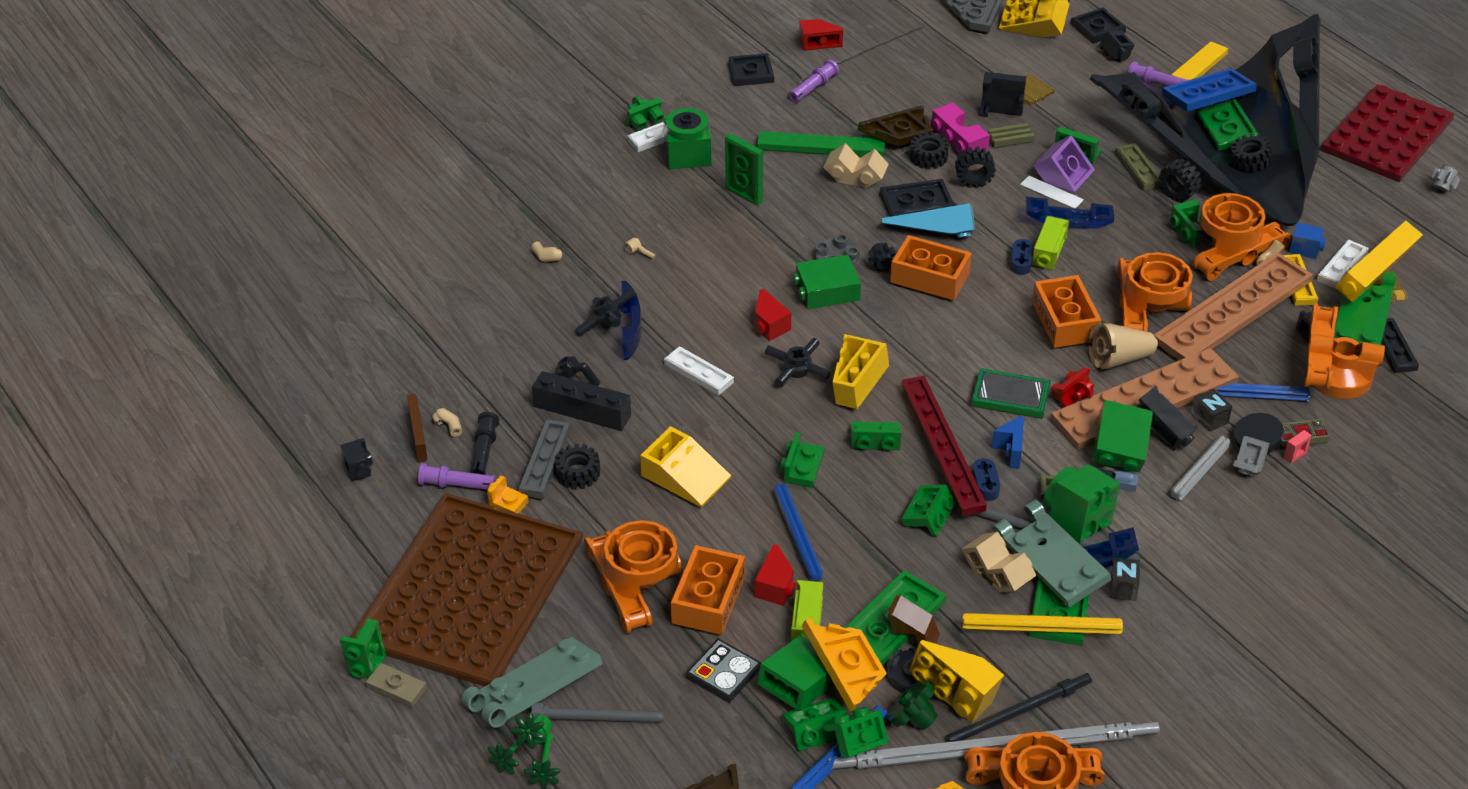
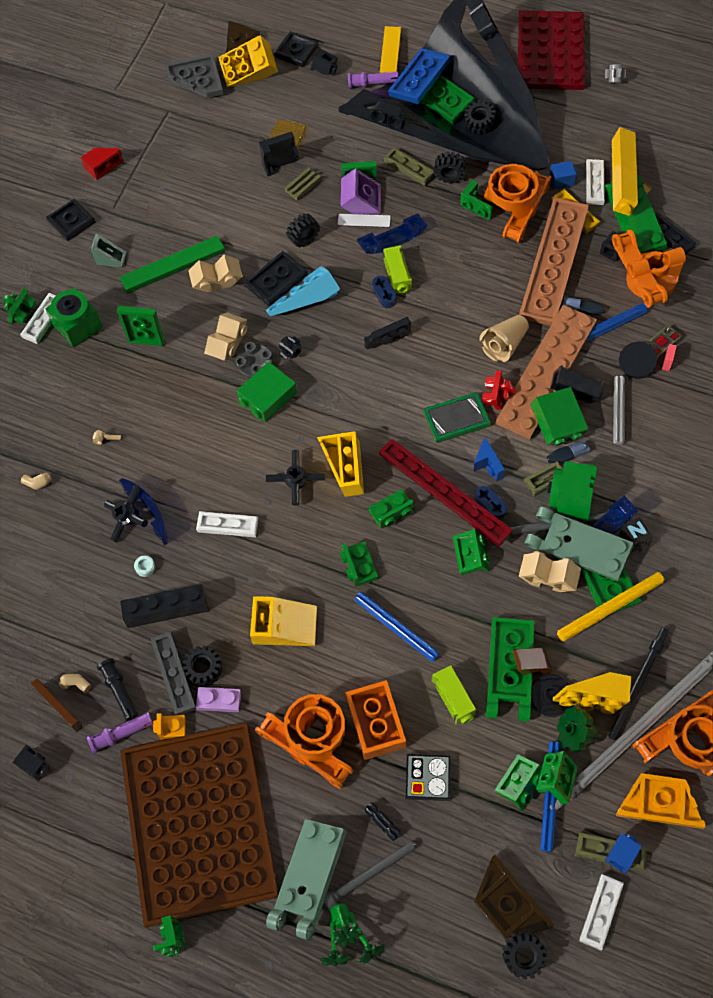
camera: 30 degrees left, 20 degrees up
(396, 685) = (208, 943): dark tan plate -> none
(570, 366) = (132, 579): black plate -> none
(571, 502) = (218, 699): none -> lavender plate
(593, 362) = (144, 566): none -> light aqua tile
(646, 680) = (382, 821): none -> black axle
(762, 106) = (107, 253): none -> sand green slope
(771, 316) = (247, 446): red slope -> none
(775, 578) = (411, 677): red slope -> none
(795, 674) = (486, 750): green brick -> none
(819, 77) = (128, 202): medium lavender pin -> none
(826, 222) = (227, 336): none -> tan brick
(847, 660) = (516, 725): light orange wing -> none
(898, 127) = (221, 219): dark brown wing -> none
(929, 150) = (253, 222): black tyre -> none
(931, 267) = (333, 339): orange brick -> none
(950, 124) = (278, 206): dark pink arch -> none
(995, 290) = (388, 333): none -> black hinge
(1065, 310) = (450, 326): orange brick -> none
(1153, 283) = (487, 279): orange piece -> none
(1211, 410) = (596, 357): clear smoke brick -> none
(1236, 363) = (583, 306): none -> black piece
(1251, 455) = (647, 383): light grey bracket -> none
(1275, 247) = (547, 196): tan arm -> none

